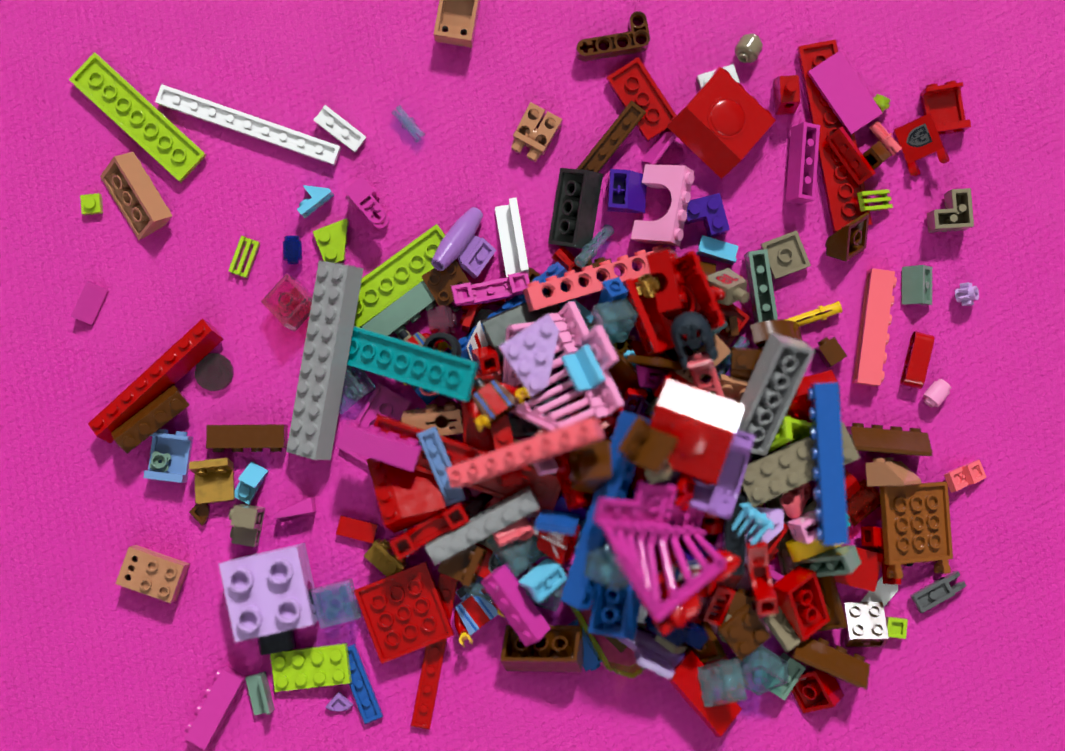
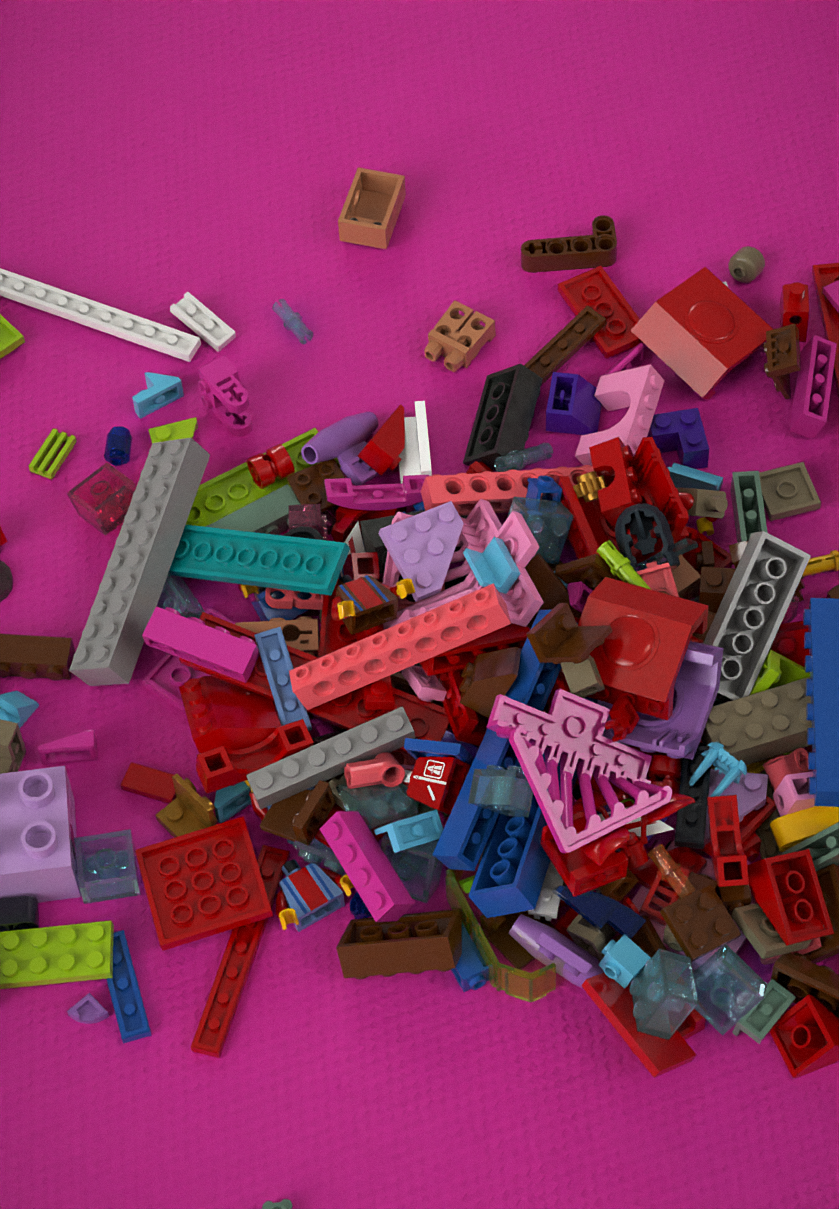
camera: 10 degrees right, 30 degrees down
(407, 275) = (272, 465): none -> red wheel
(491, 238) = (387, 444): none -> red slope
(677, 365) = (619, 565): none -> lime pin
(693, 659) = (623, 960): none -> medium azure brick
(723, 599) = (671, 871): none -> clear orange axle
(782, 143) = (782, 356): none -> reddish brown bracket

